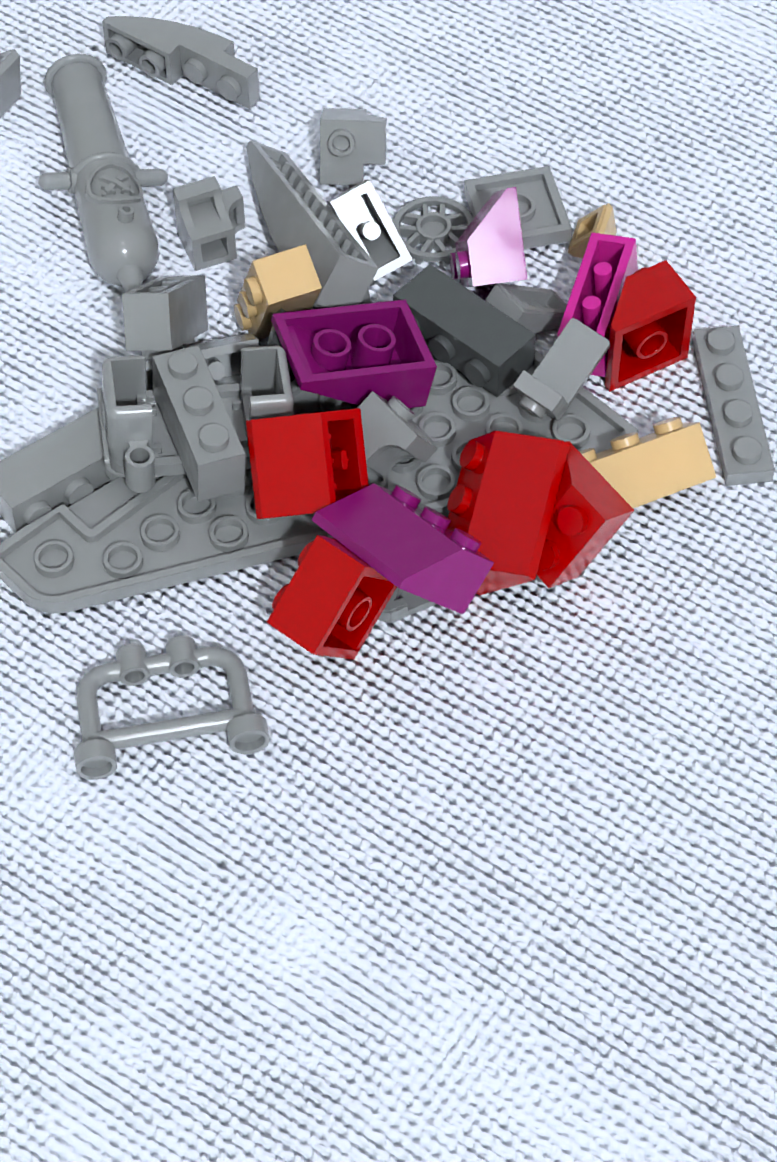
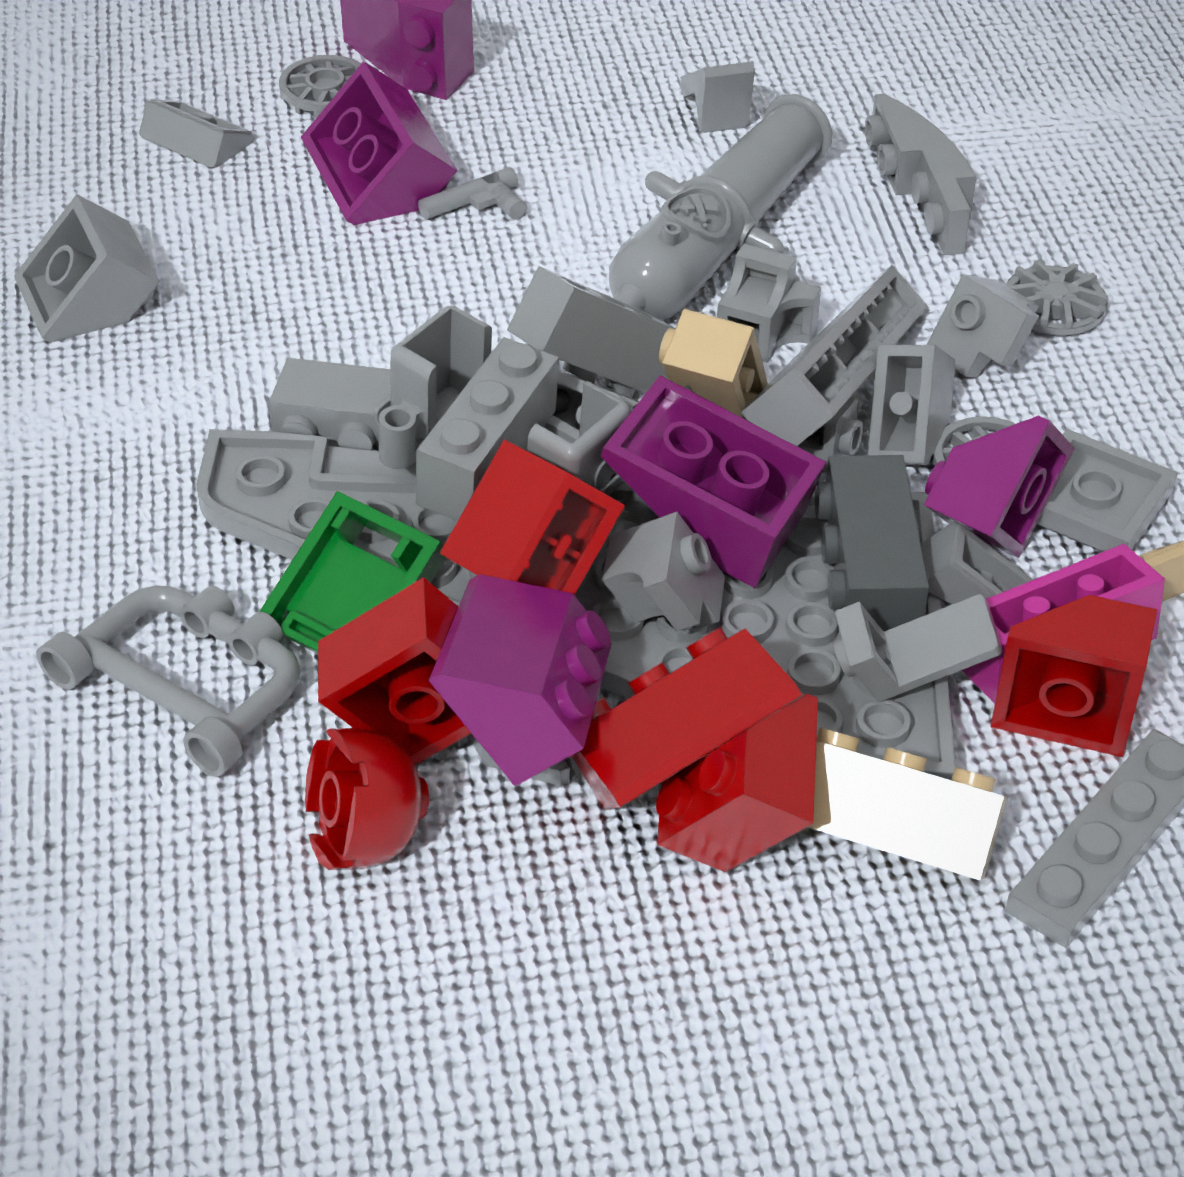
camera: 45 degrees right, 10 degrees down
(208, 588) = (337, 581): none -> green container
(351, 93) = (1060, 299): none -> light grey wheel
(375, 693) = (364, 798): none -> red cylinder

